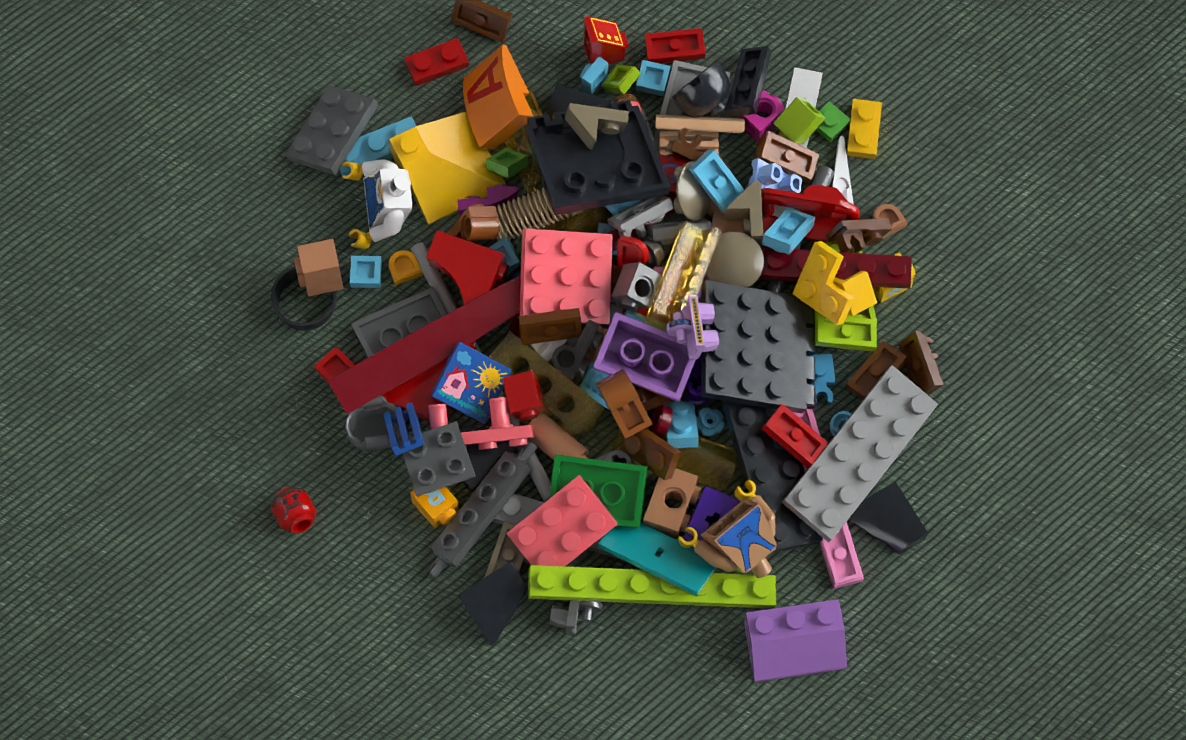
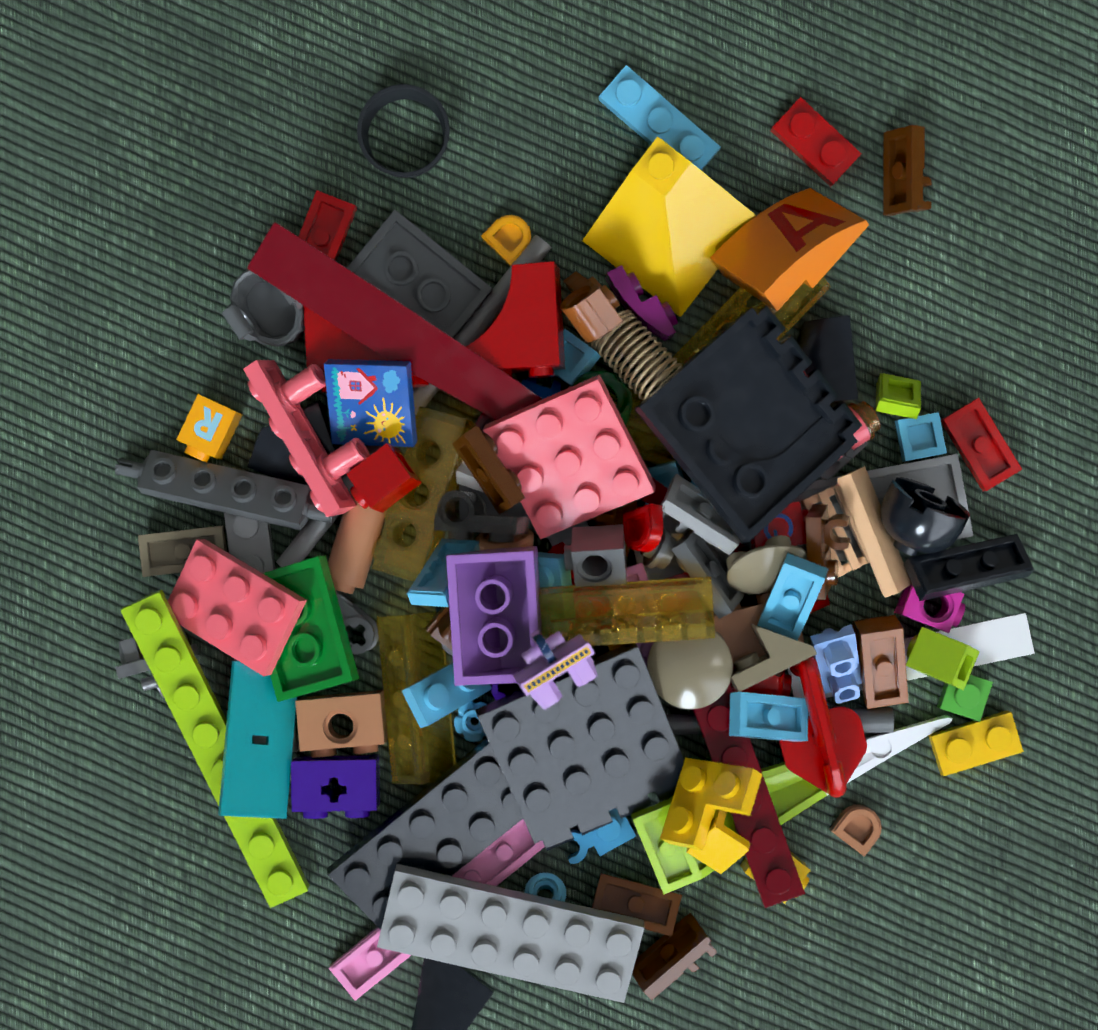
camera: 70 degrees right, 20 degrees up
(293, 510) = (118, 258): red head -> none
(318, 267) = (432, 133): nougat brick -> none
(331, 129) = (651, 53): dark grey plate -> none
(365, 272) = (476, 193): medium azure plate -> none
(386, 199) = (582, 171): white torso -> none
(399, 418) = (254, 335): blue tile -> none
(439, 460) = (242, 410): dark grey hinge -> none
(494, 600) = (113, 562): black slope -> none
(507, 162) = (707, 303): bright green plate -> none
(587, 119) = (793, 389): dark tan slope -> none
(594, 75) = (887, 357): medium azure plate -> none
(603, 40) = (940, 350): red slope -> none
(624, 403) = (416, 616): dark orange plate -> none
(652, 452) = (384, 671): reddish brown plate -> none
(661, 420) = (434, 665): dark red tile -> none
(740, 537) = (318, 837): medium nougat torso -> none
(795, 435) = (489, 845): red plate -> none
(796, 640) = (237, 951): medium lavender slope -> none
(858, 233) = (807, 801): reddish brown plate -> none

